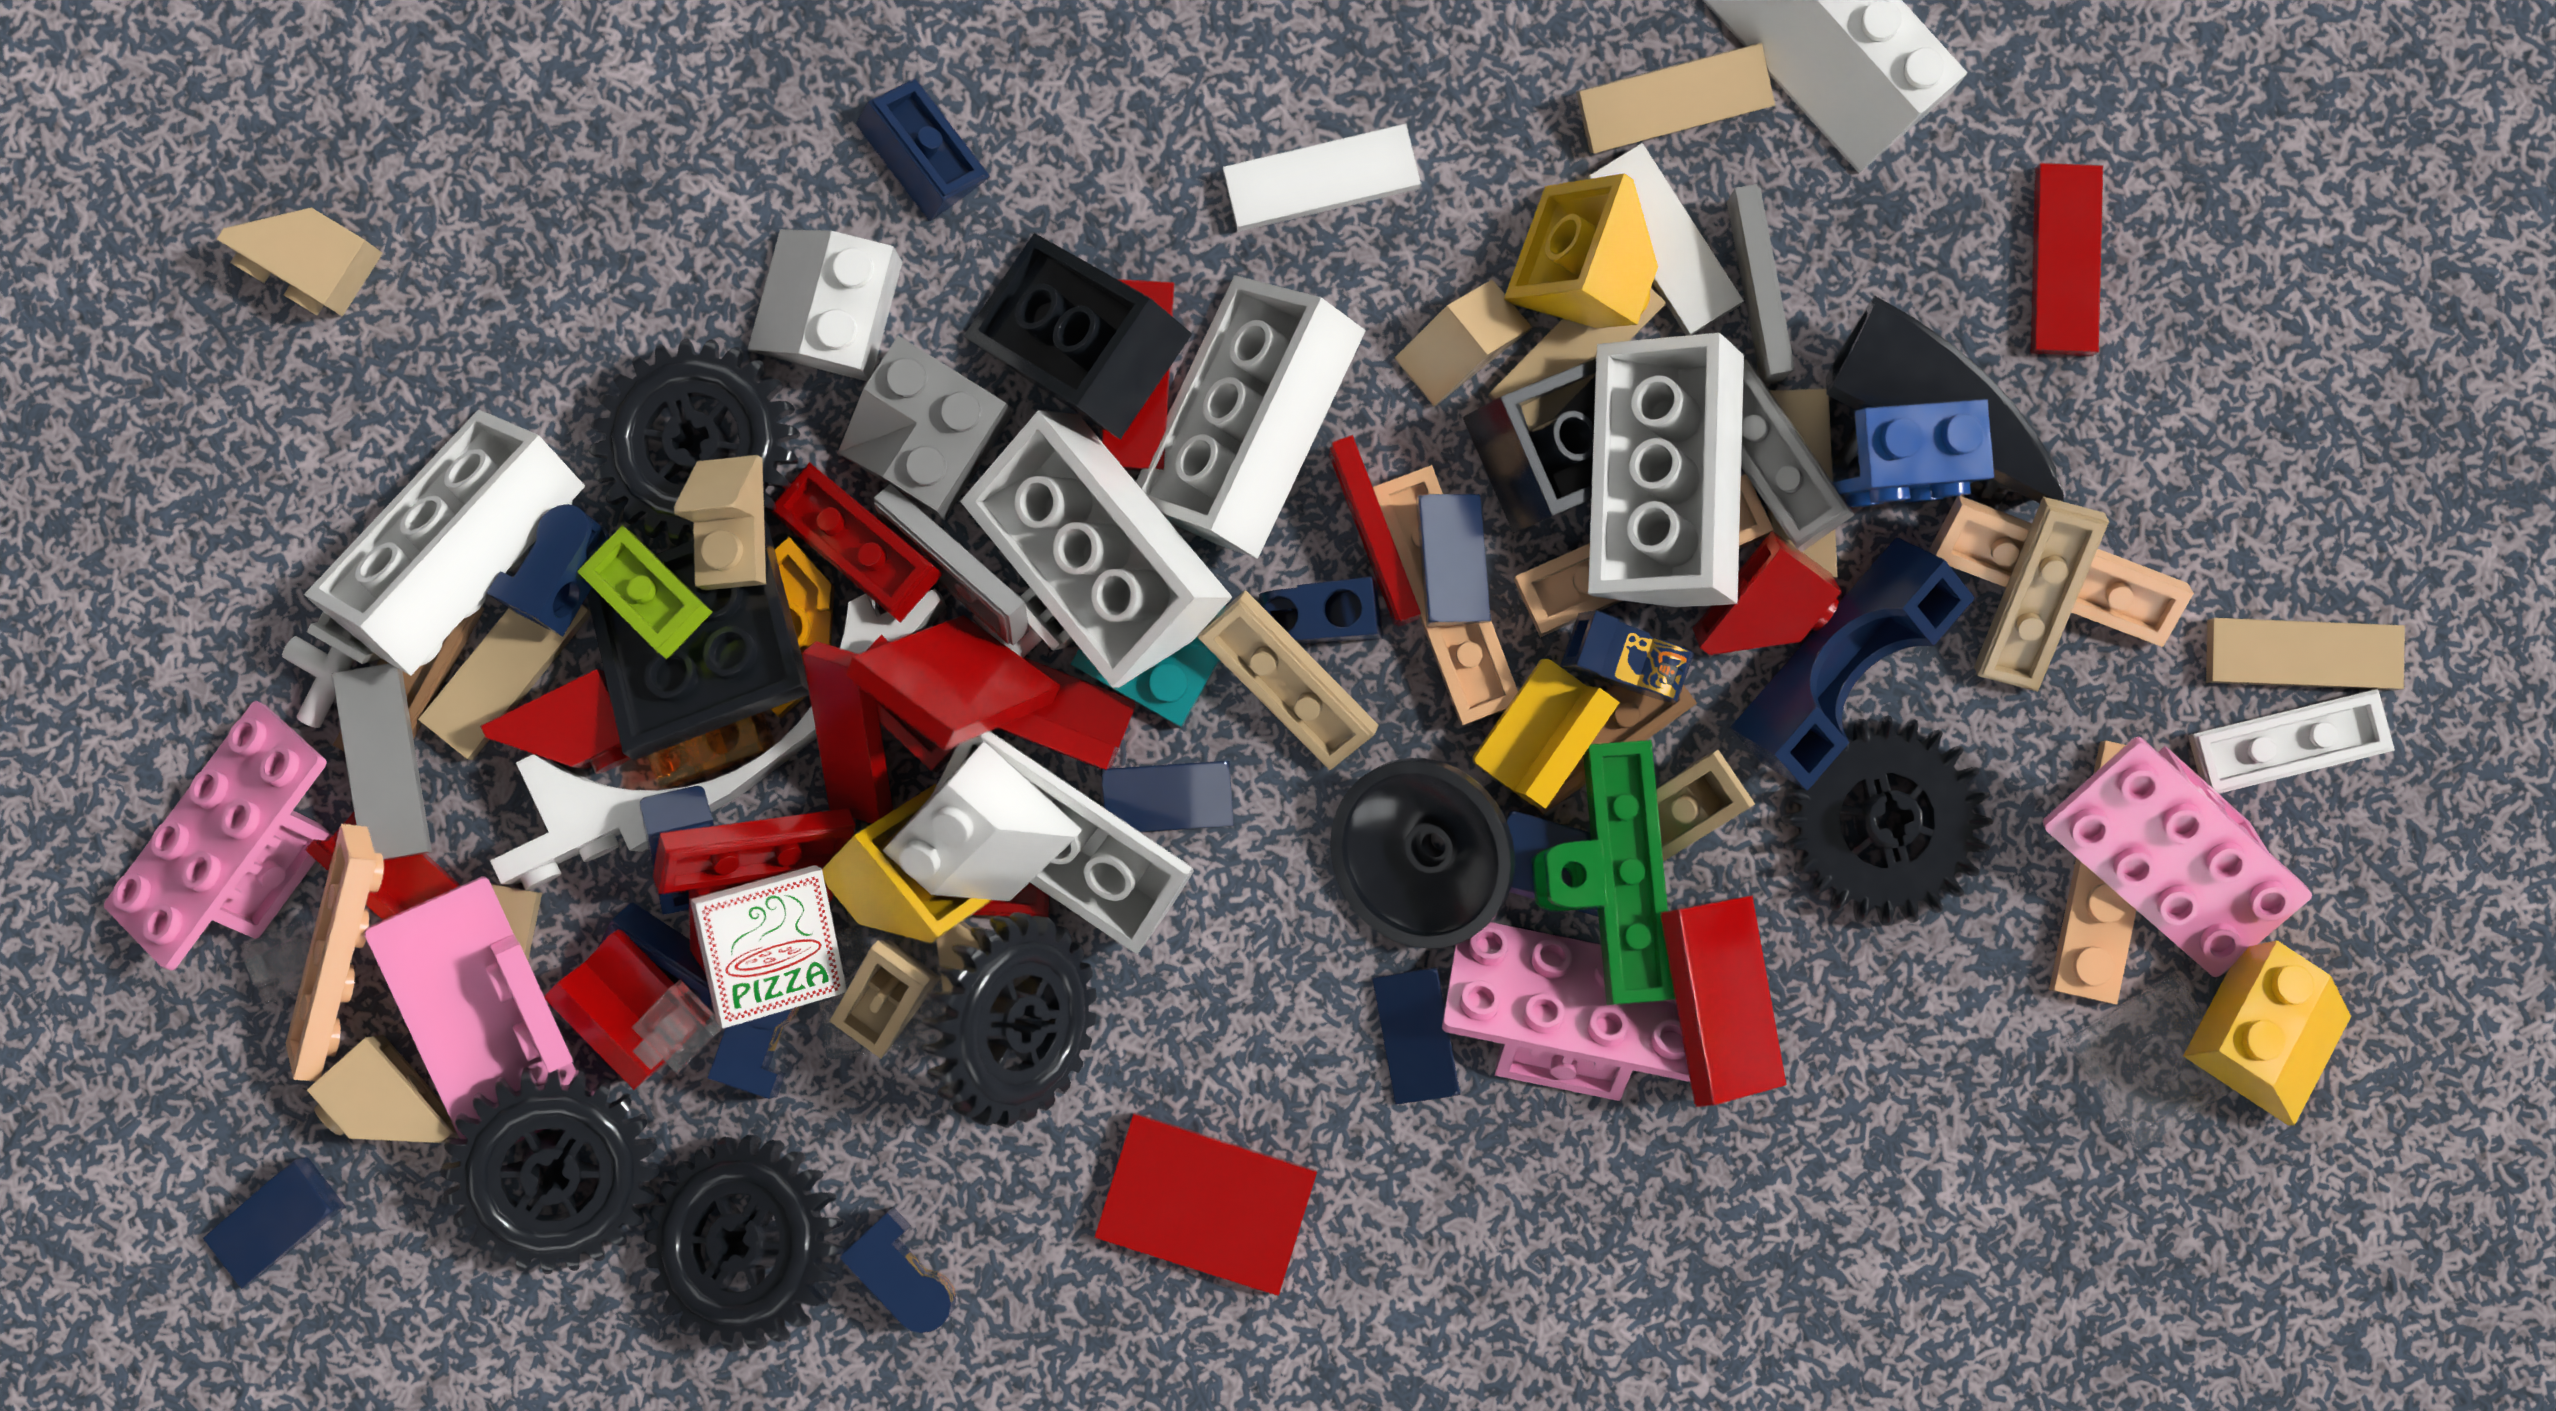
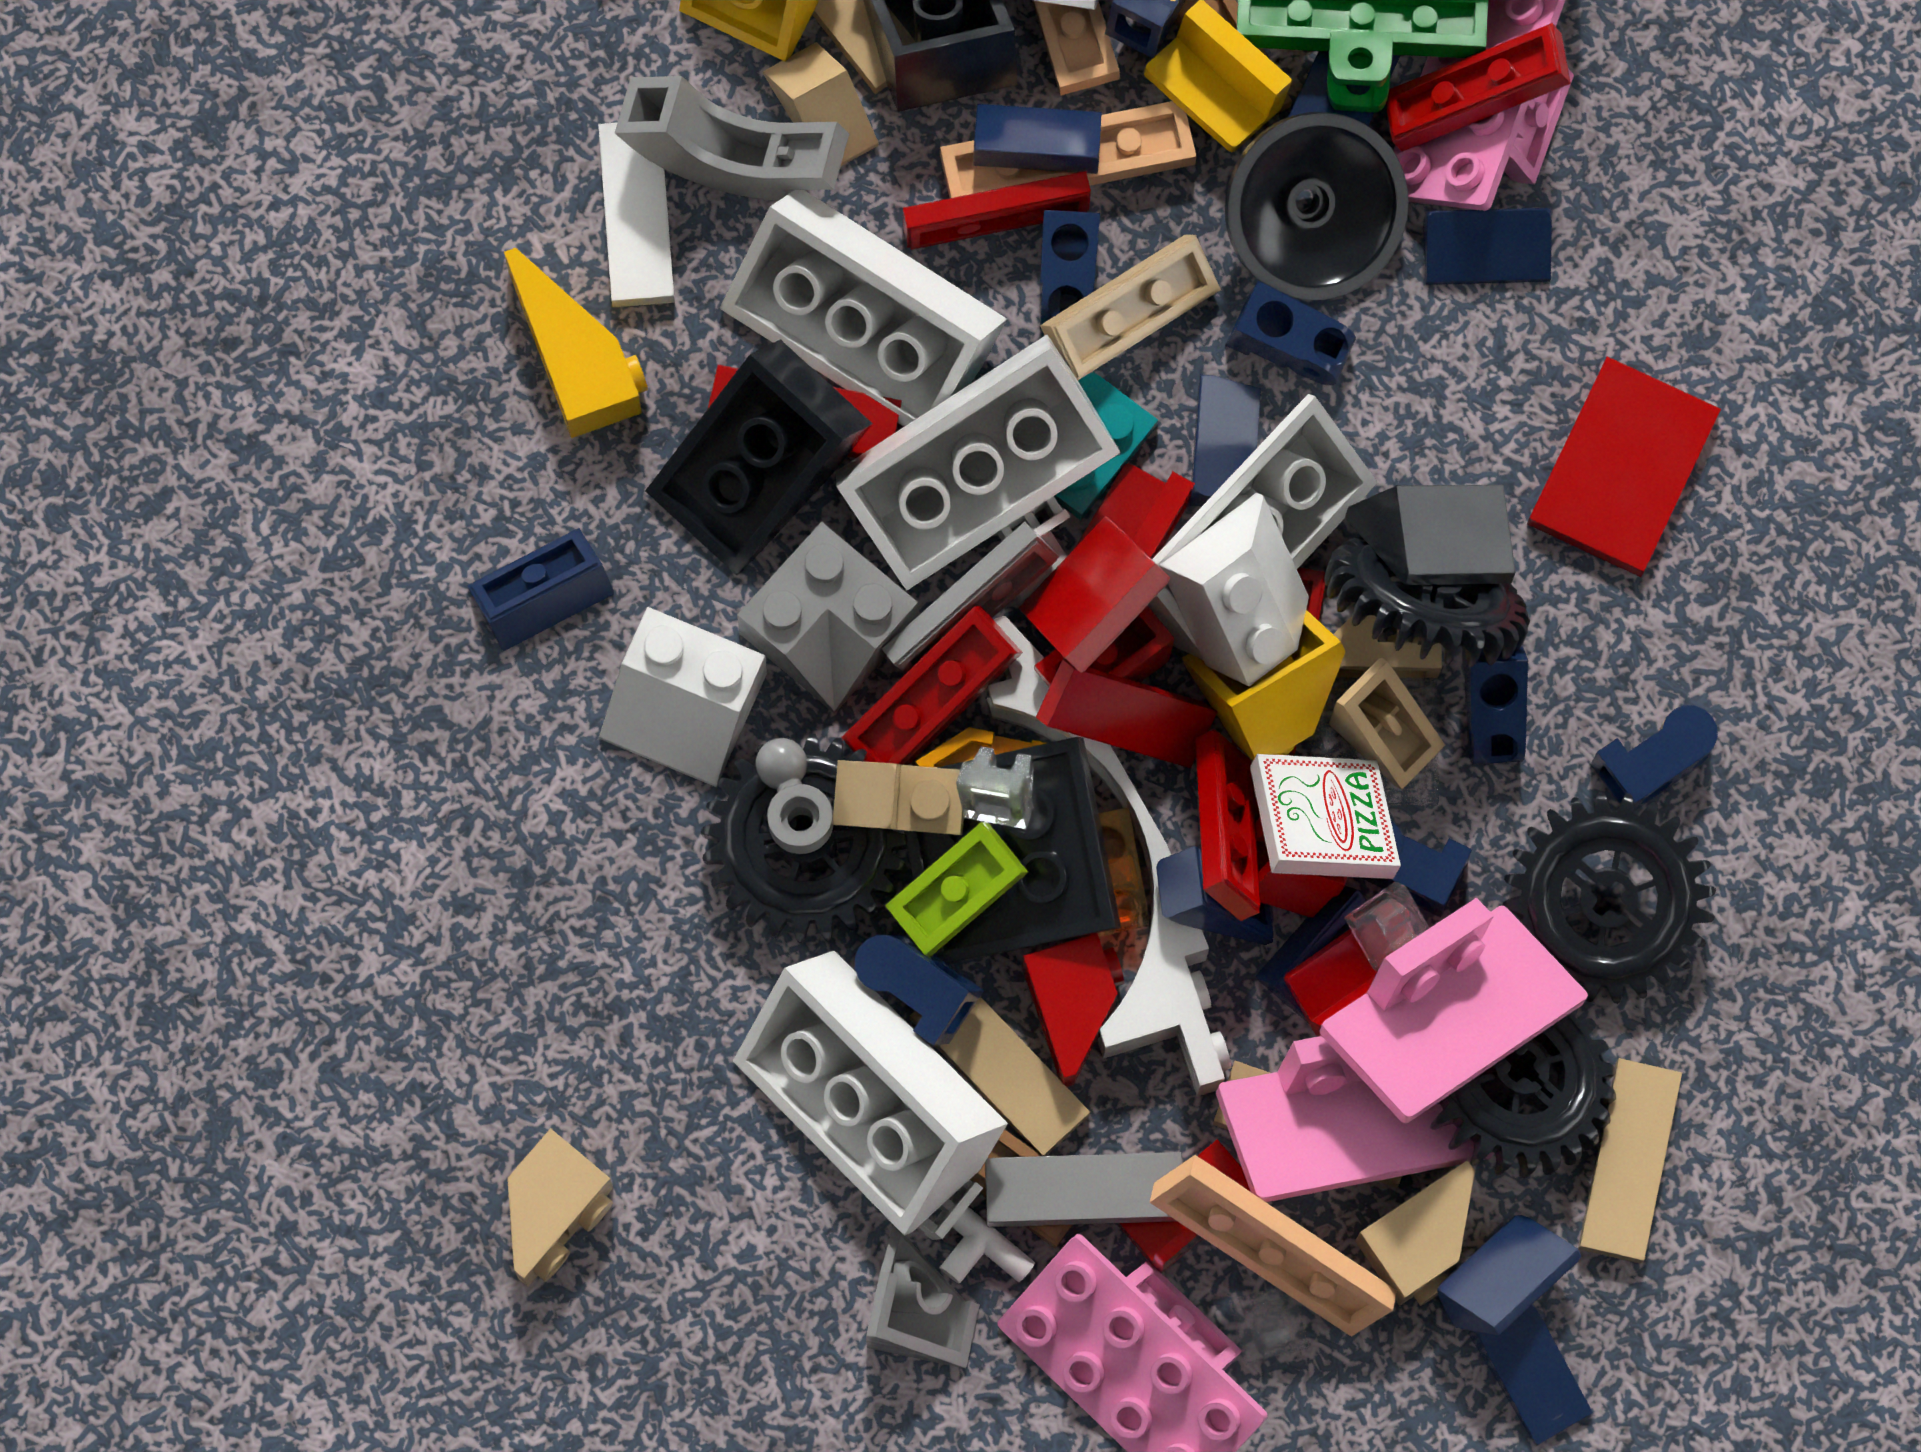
camera: 85 degrees left, 10 degrees down
(248, 621) = (918, 1309): none -> light grey slope
(345, 1188) = (1506, 1276): none -> dark blue slope
(492, 1295) = (1630, 1161): none -> tan tile
(578, 1100) = (1451, 1008): none -> bright pink bracket
(731, 616) = (994, 792): none -> clear tile
(745, 402) = (782, 766): none -> light grey plate
(914, 1109) = (1496, 708): none -> dark blue leg
(1078, 1023) = (1439, 533): none -> slope
(1155, 142) = (578, 353): none -> yellow slope
(1287, 847) = (1291, 335): none -> dark blue leg
(1397, 249) = (723, 150): none -> light grey arch
(1572, 1002) = (1477, 87): none -> red tile

